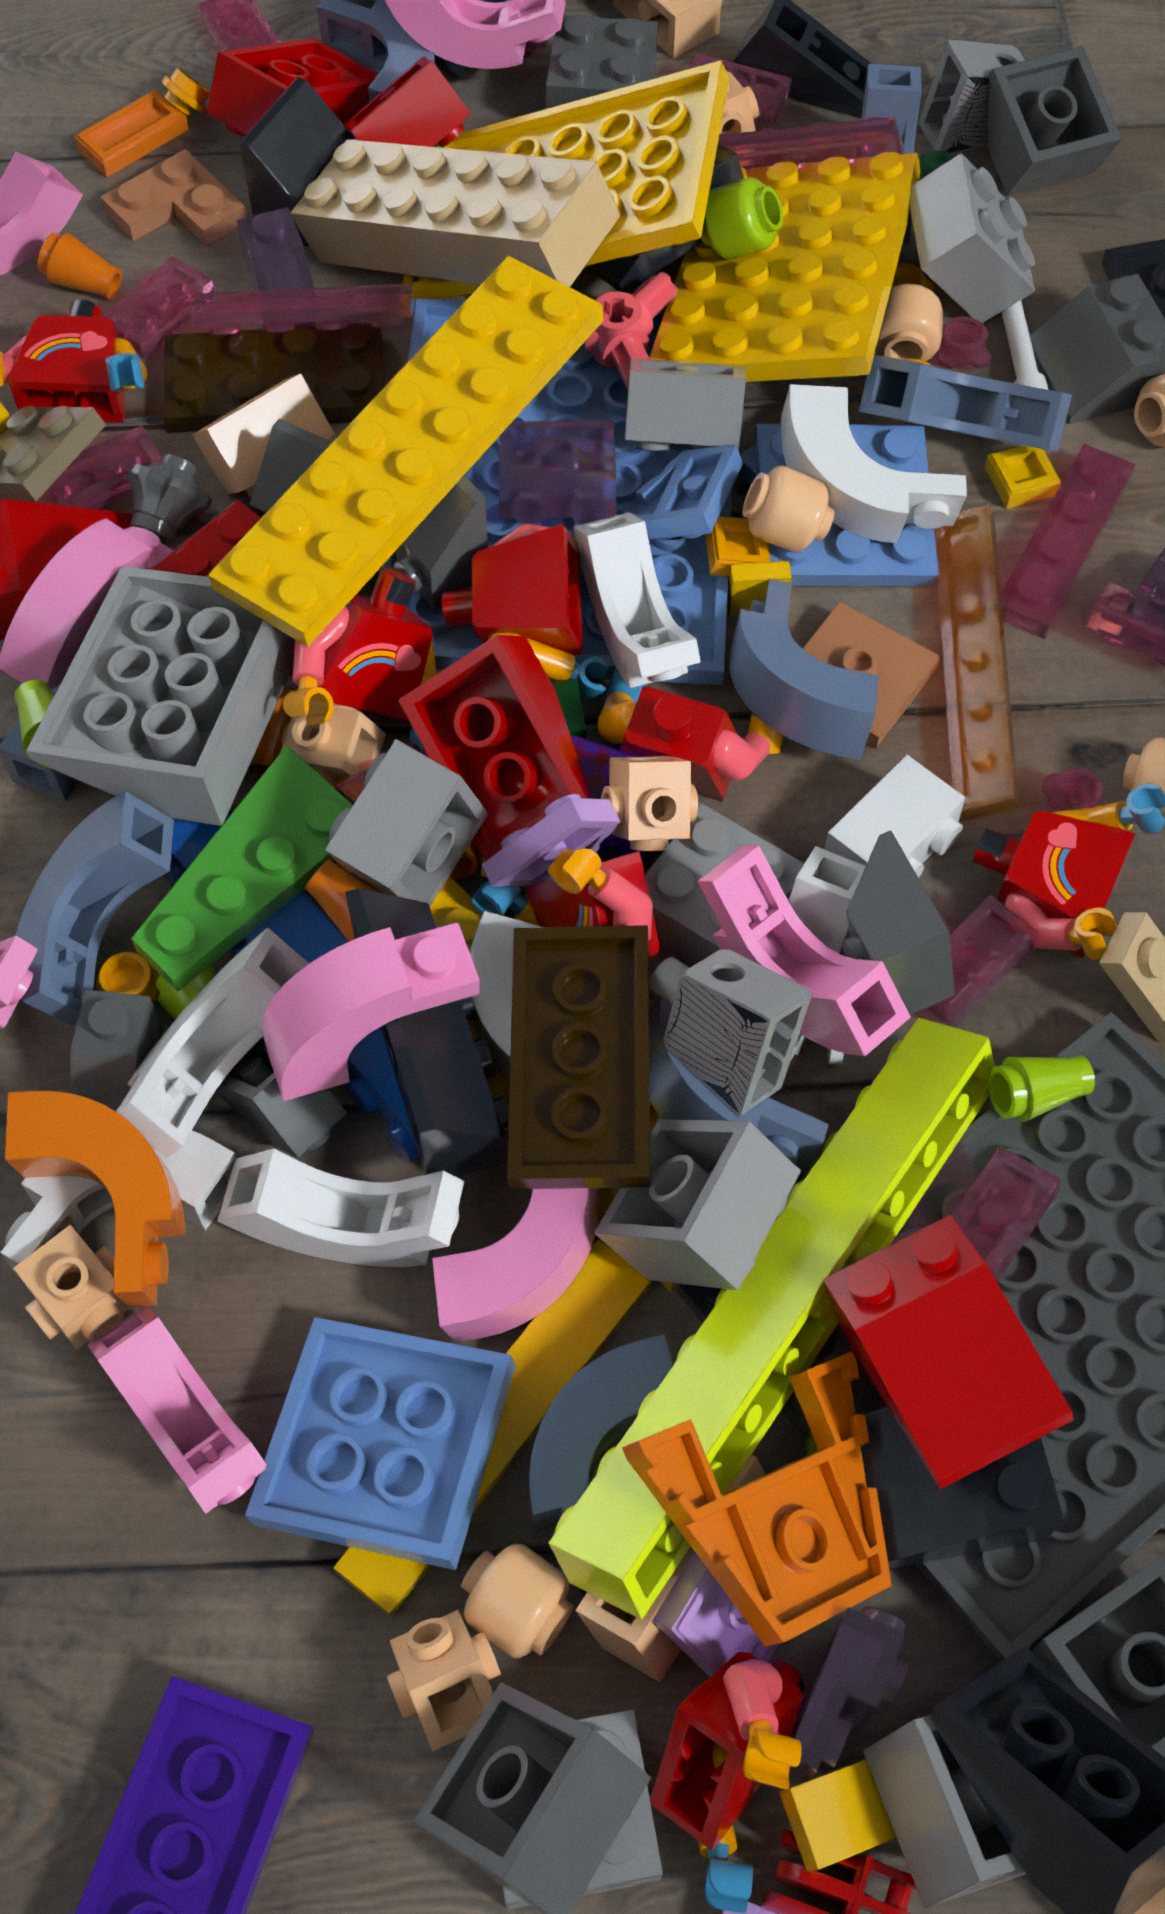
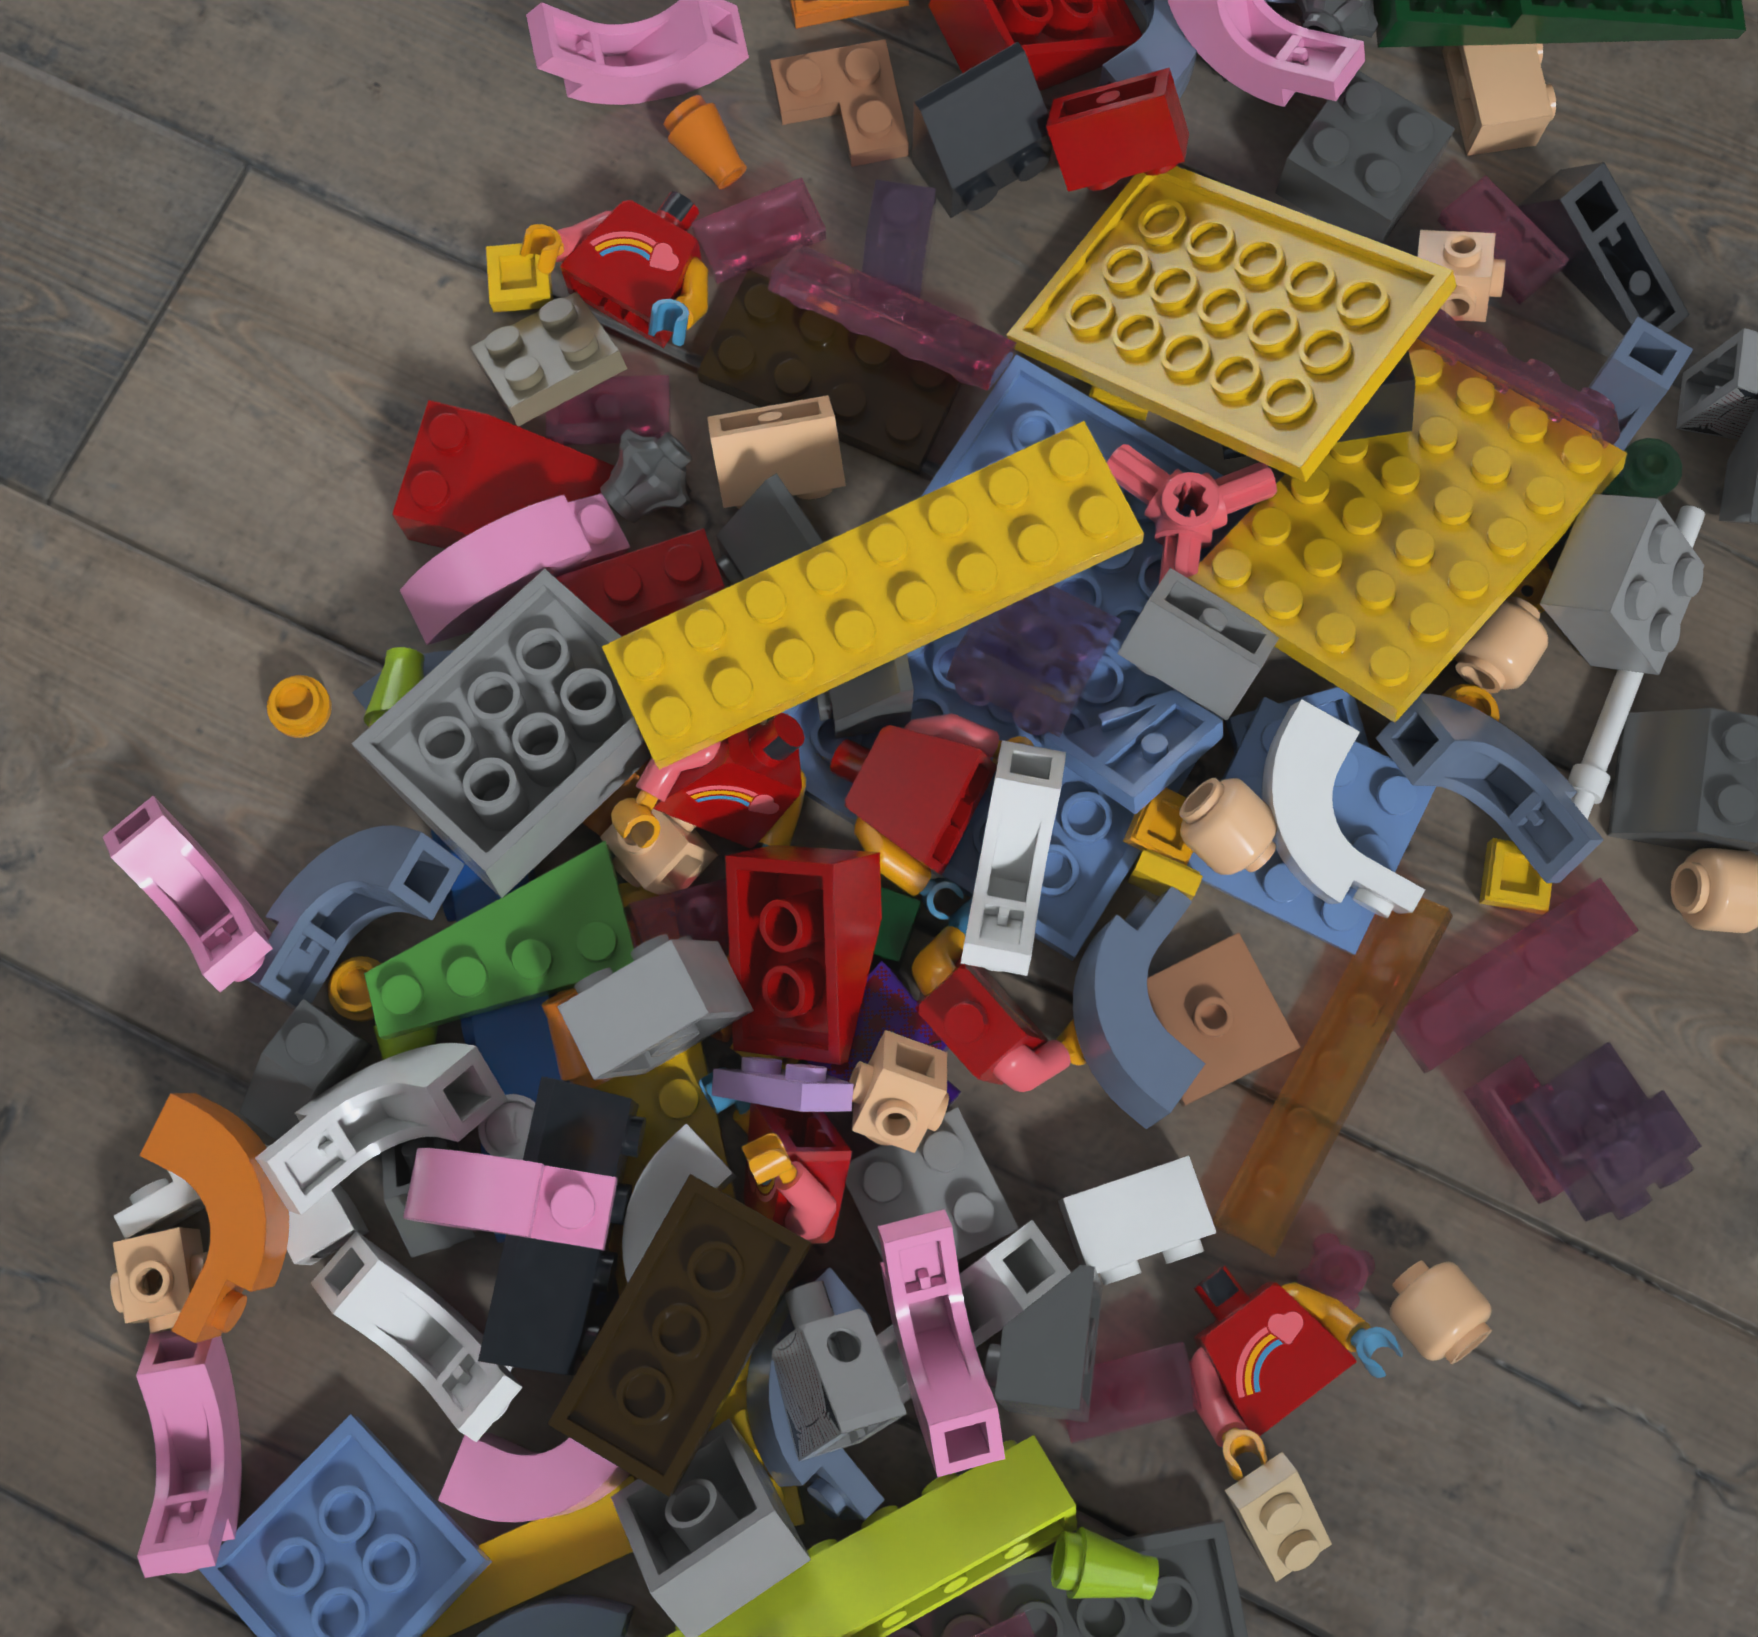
camera: 30 degrees right, 15 degrees up
(454, 211) = (1091, 301): tan brick -> none
(741, 218) = (1382, 453): lime head -> none
(964, 344) = (1568, 685): clear pink plate -> none

